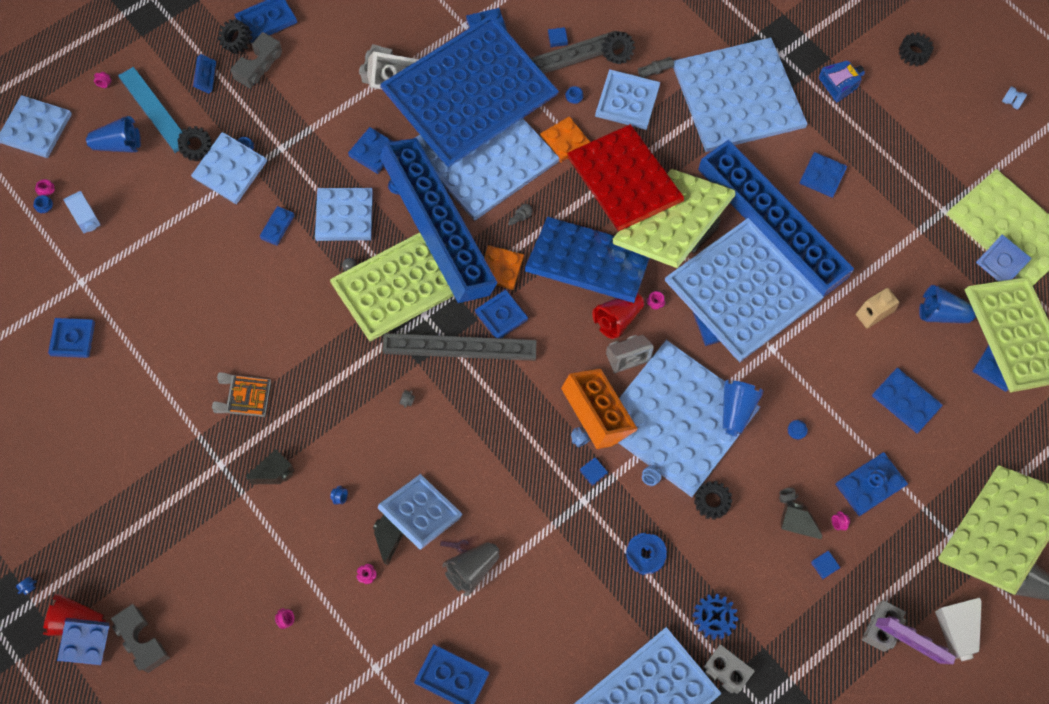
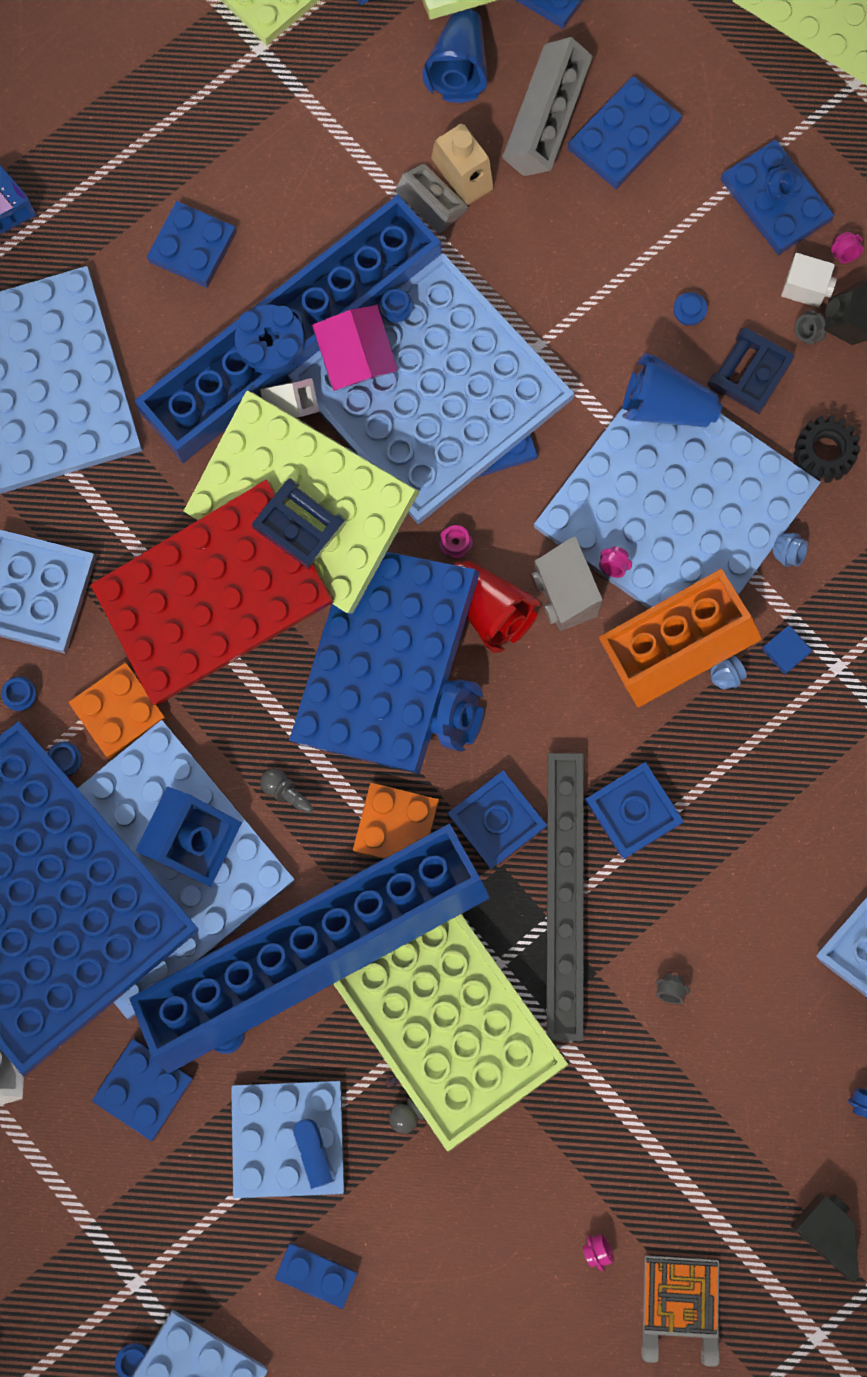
camera: 85 degrees left, 10 degrees up
(274, 355) = (598, 1252): none -> dark pink plate
(336, 219) = (313, 1153): none -> blue bar
(496, 165) = (188, 836): none -> blue slope
(503, 384) = (634, 811): none -> blue plate
(540, 115) = (66, 757): none -> blue plate
(563, 287) = (458, 714): none -> blue plate
(642, 376) = (614, 562): none -> dark pink plate
(652, 206) = (293, 532): none -> dark blue plate
(733, 216) = (295, 397): none -> white brick
(756, 465) = (761, 375): none -> dark blue plate
(762, 246) = (354, 347): none -> dark pink slope
(767, 192) = (263, 320): none -> blue plate
(789, 269) = (396, 305): none -> blue plate
(817, 496) = (809, 280): none -> white brick
(858, 294) = (430, 197): none -> light grey slope
(917, 354) = (547, 107): none -> light grey brick

